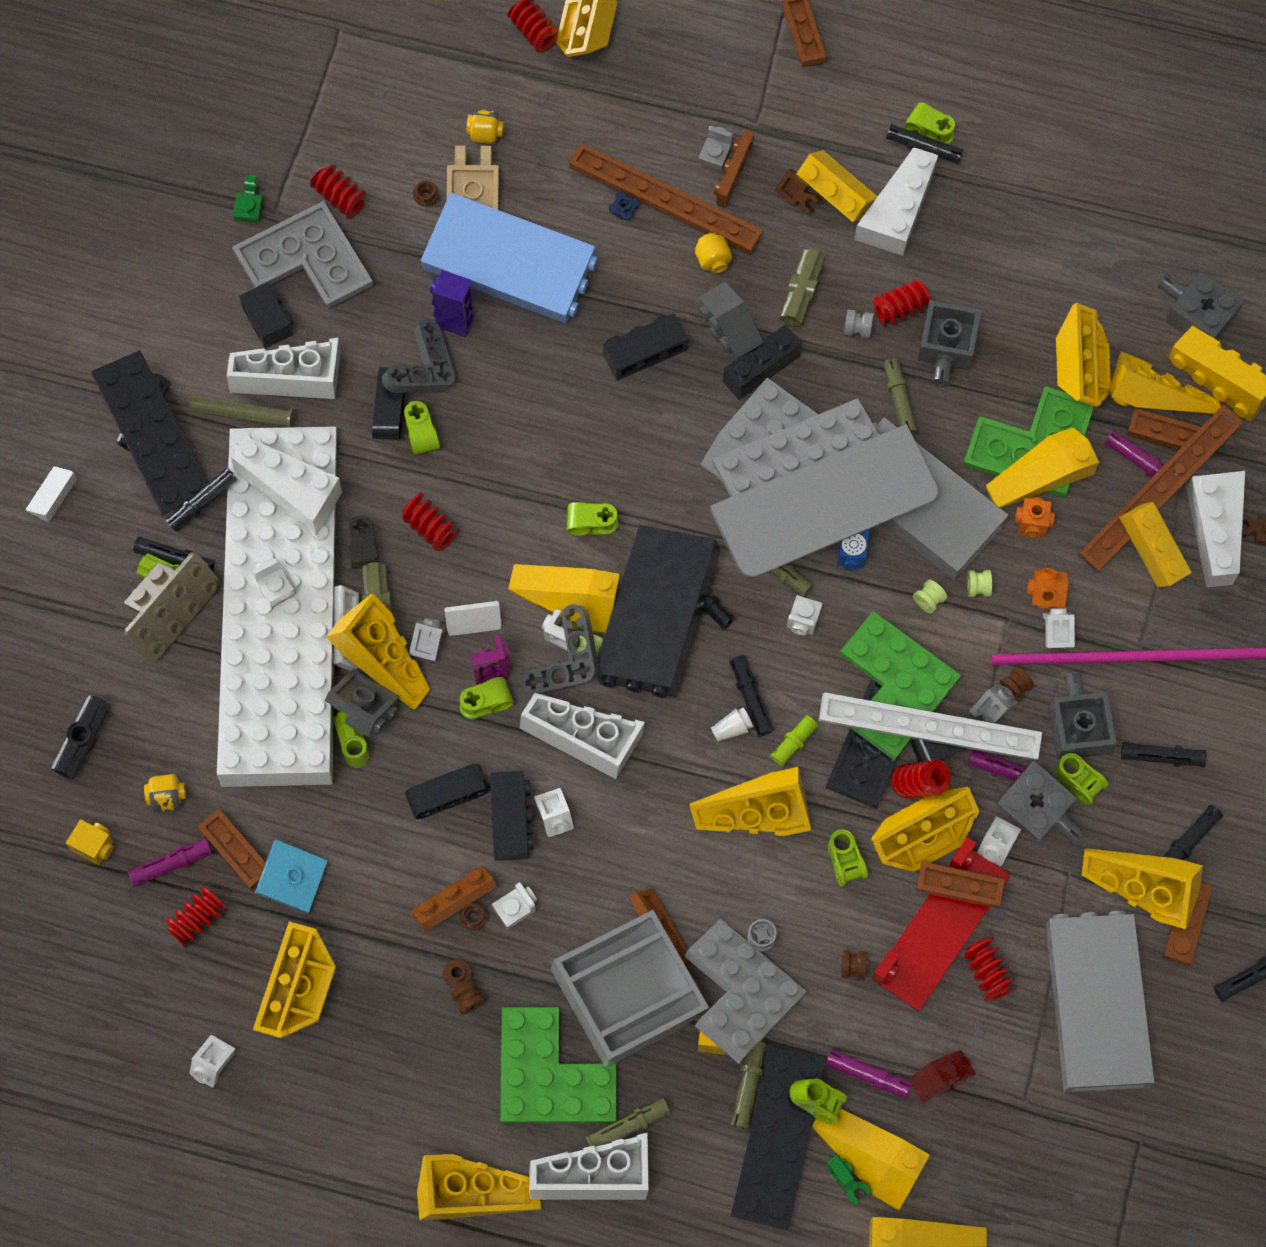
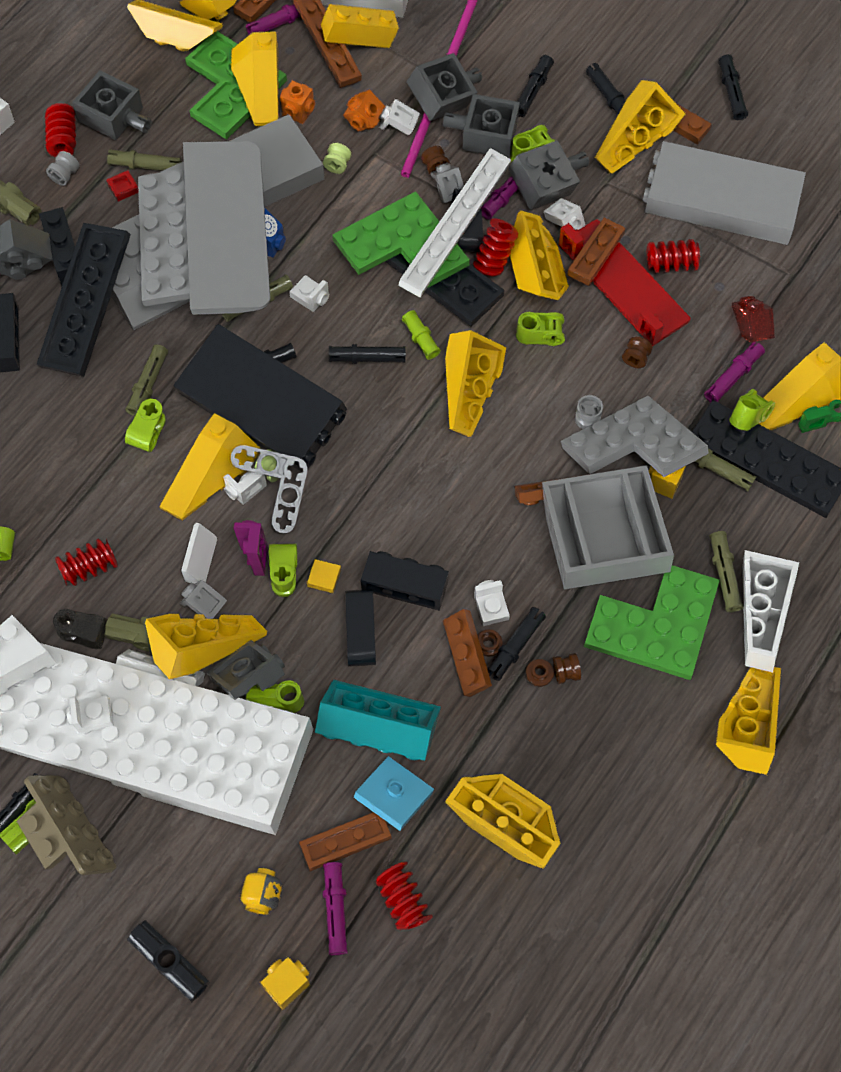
camera: 70 degrees left, 5 degrees down
(211, 1060) = (554, 925): white bracket -> none
(359, 838) = (377, 720): none -> teal slope
(479, 942) = (509, 653): none -> black pin
(492, 740) = (324, 576): none -> yellow tile
(554, 812) = (414, 541): white bracket -> none
(583, 733) = (352, 492): white wedge -> none
(677, 499) = (156, 357): none -> olive pin
(701, 405) = (83, 299): none -> black plate
(732, 725) = (388, 376): white cone -> none
(864, 388) = (123, 185): none -> red tile
(930, 596) = (333, 195): yellowish green wheel -> none
(1125, 661) = (443, 86): none -> dark grey brick

